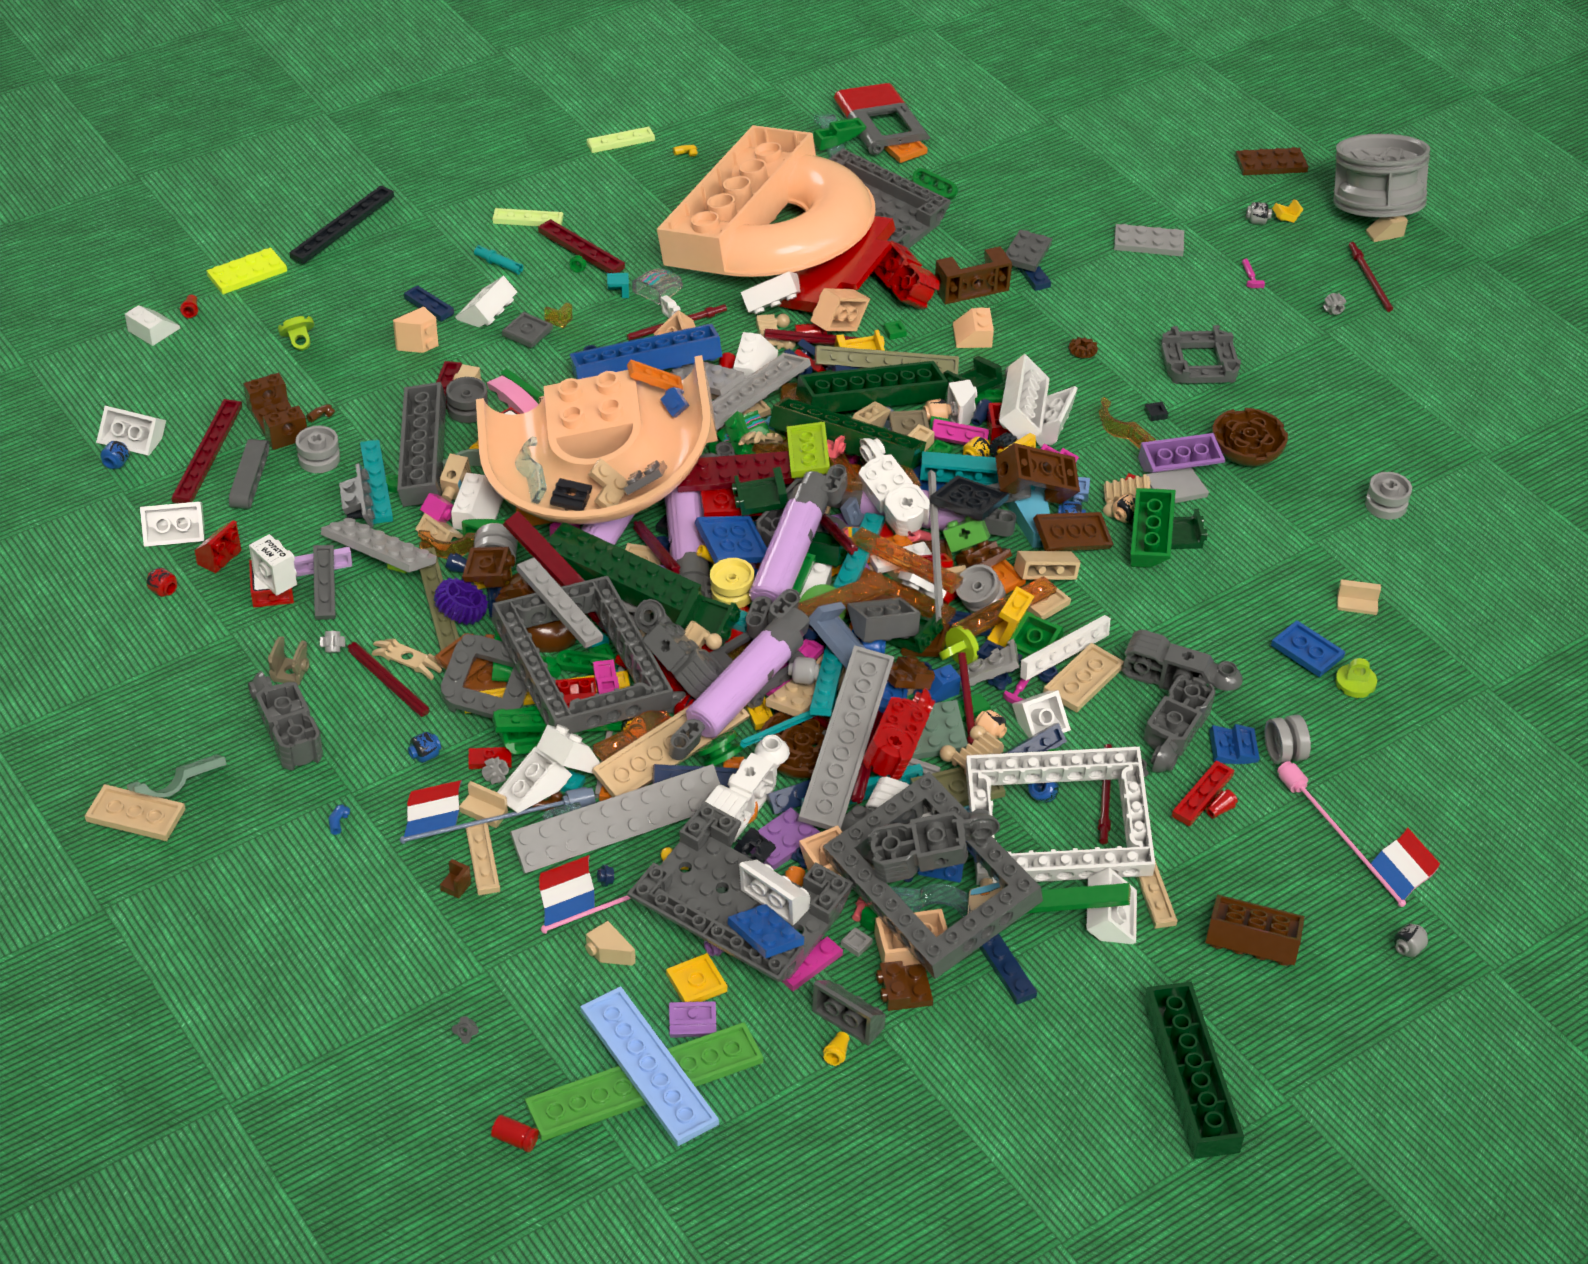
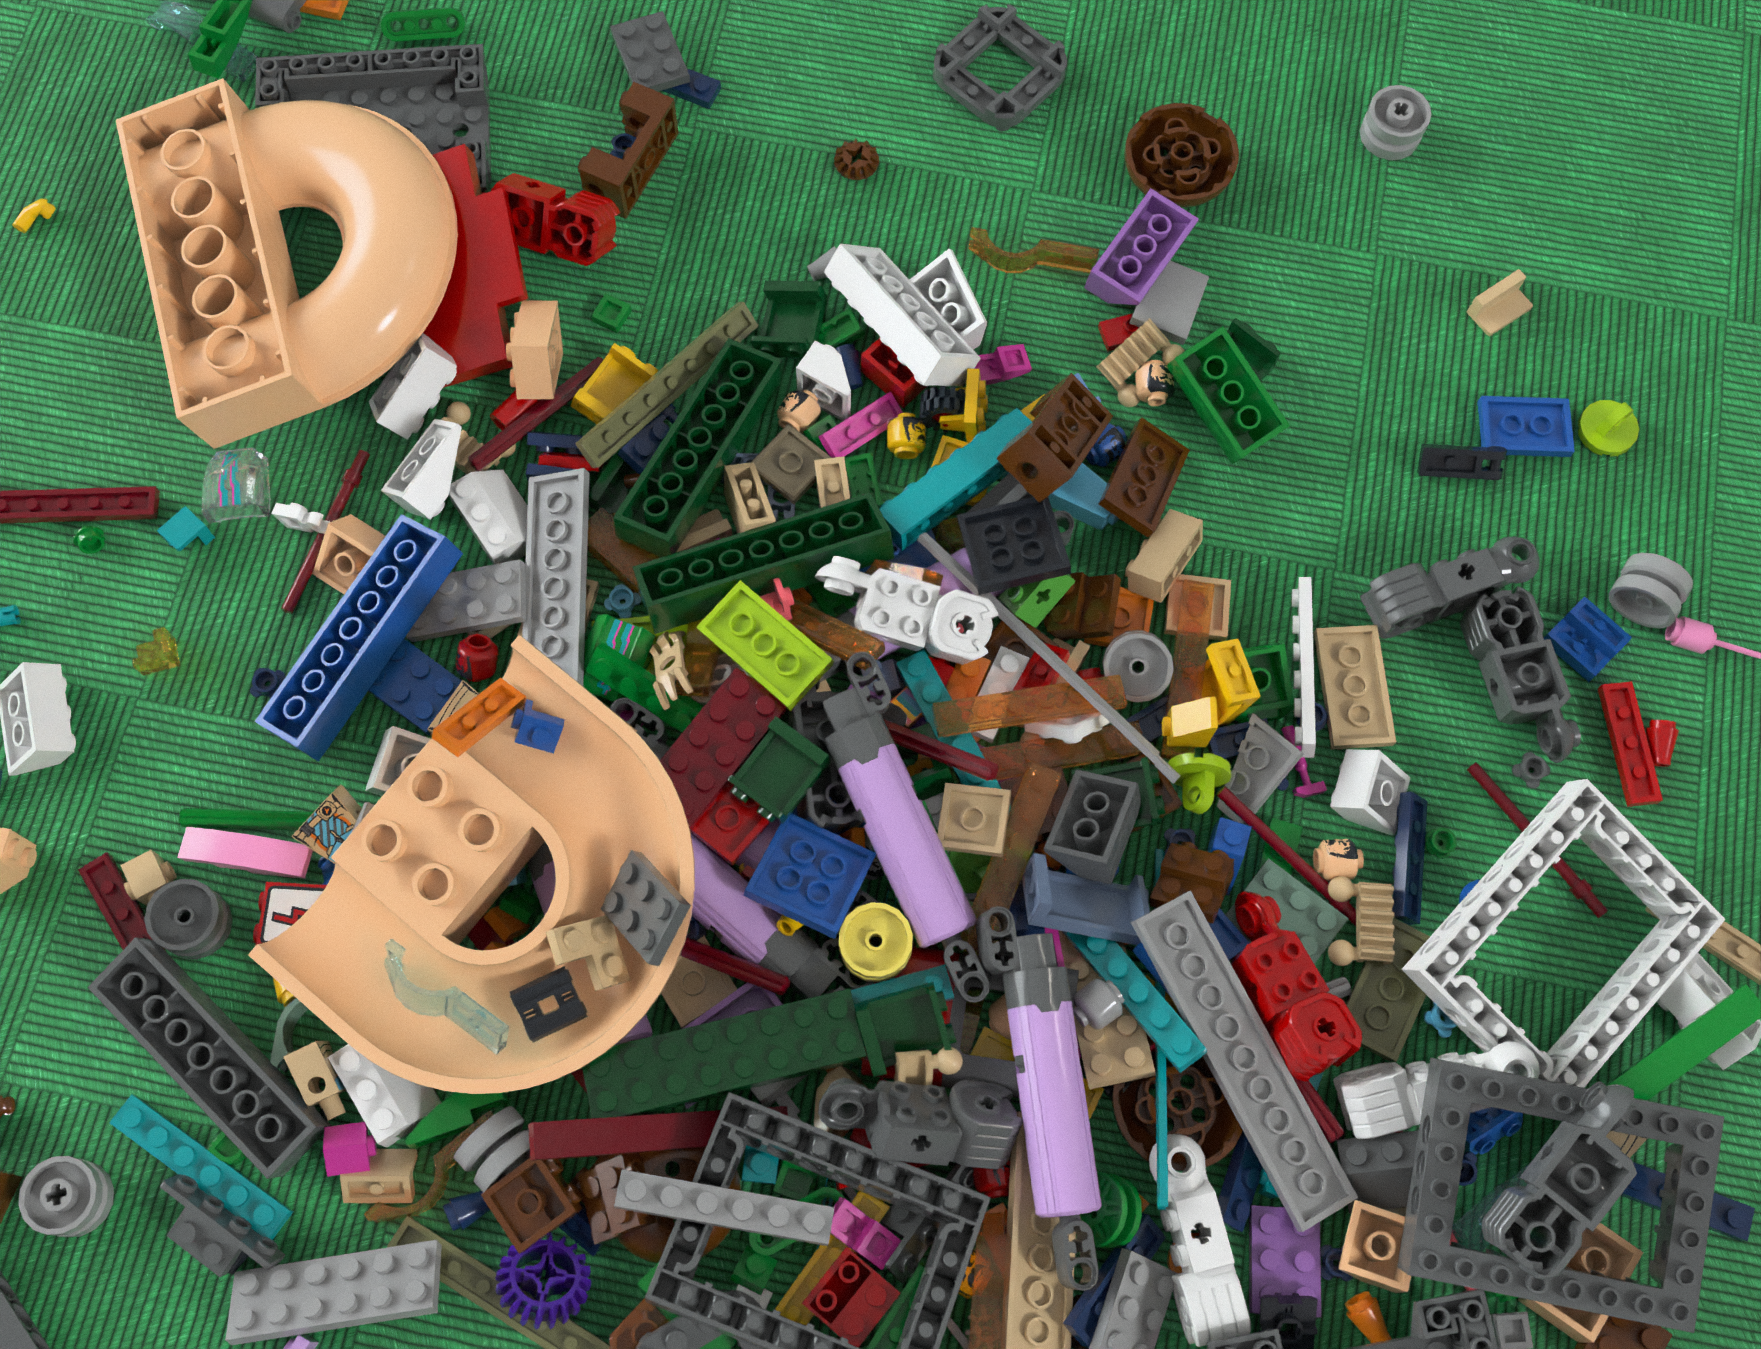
camera: 45 degrees left, 25 degrees up
(527, 329) = (138, 715): dark grey plate -> none
(727, 360) = (468, 546): red cone -> none
(735, 323) = (427, 471): none -> white slope
(828, 572) = (974, 819): none -> tan plate
(974, 329) = (709, 236): light nougat slope -> none
(975, 615) = (1191, 723): none -> yellow slope
(1156, 411) = (1031, 195): black tile -> none
(1252, 636) = (1461, 461): none -> black plate

